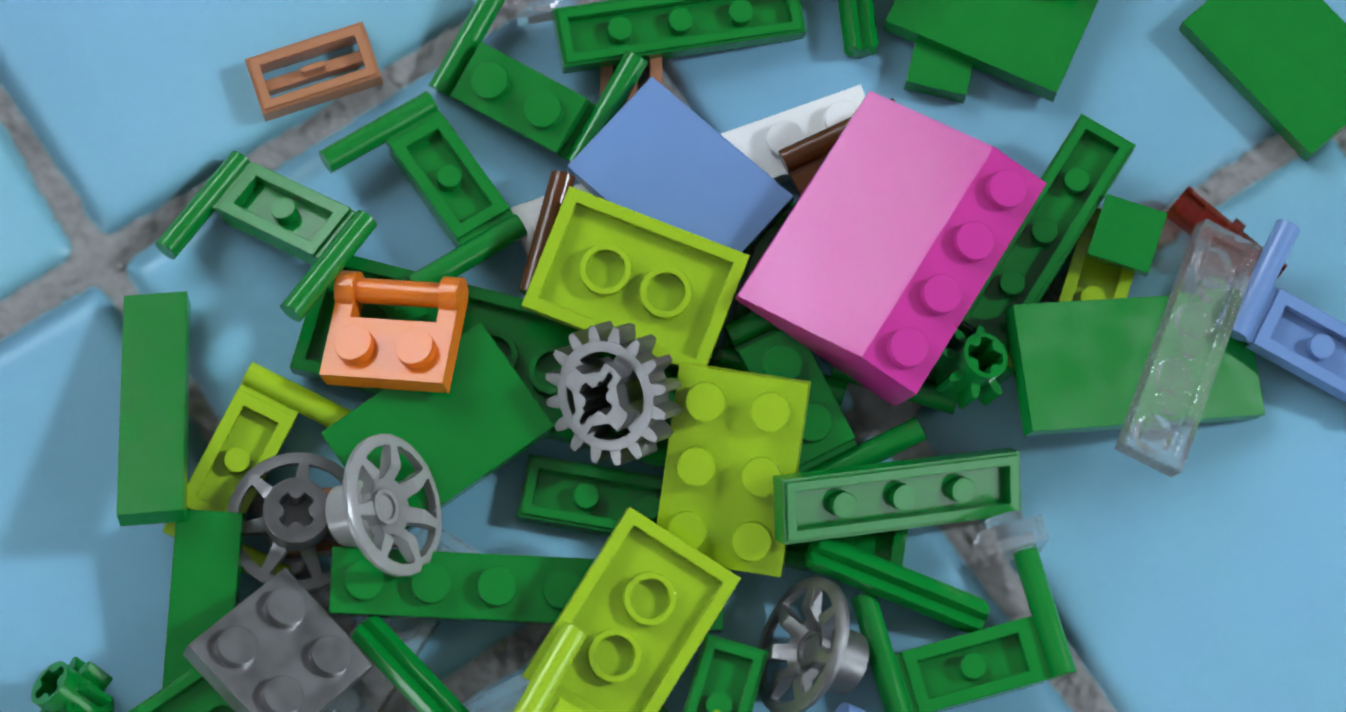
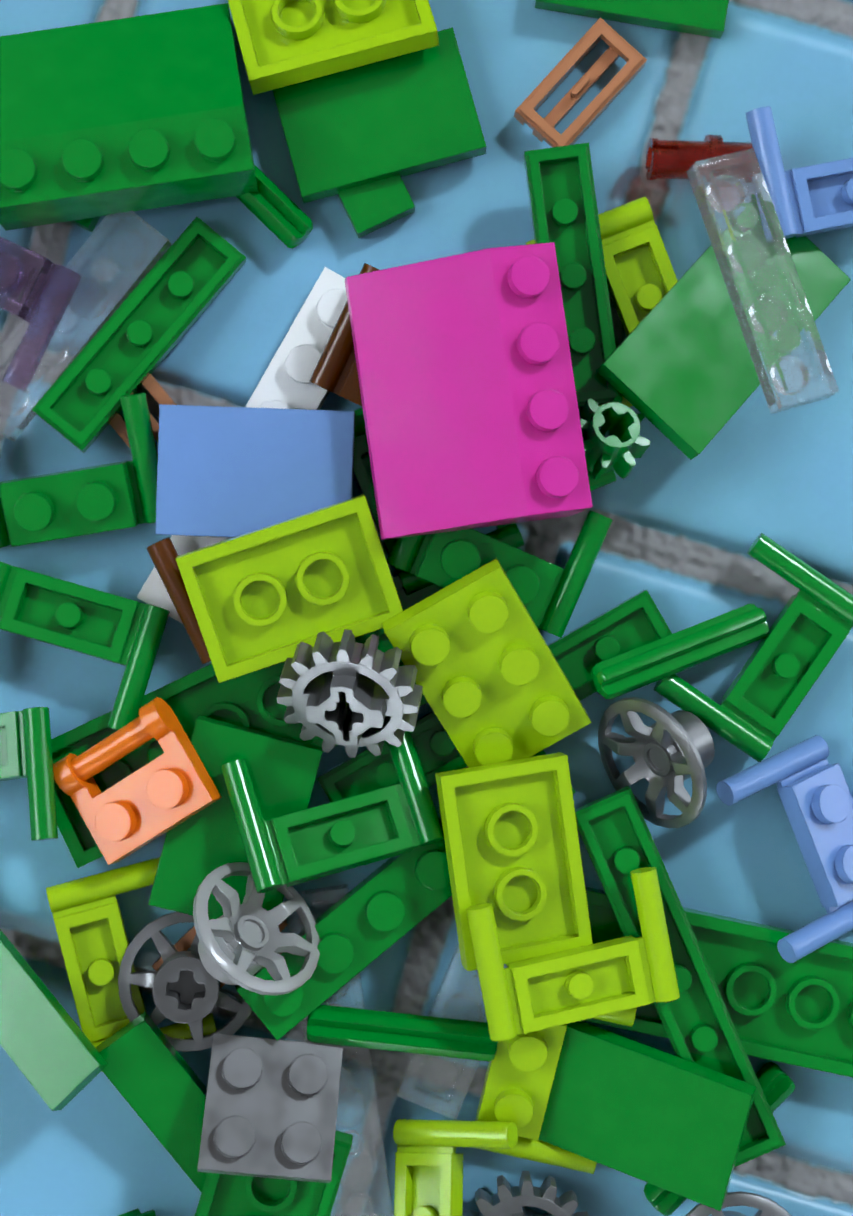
camera: 40 degrees left, 15 degrees up
(513, 492) = (336, 833): none -> green plate
(896, 495) = (628, 587): green tile -> none
(1007, 535) = (735, 542): clear plate -> none
(1126, 235) = (638, 224): green tile -> none
(1164, 88) = (544, 128): none -> nougat tile

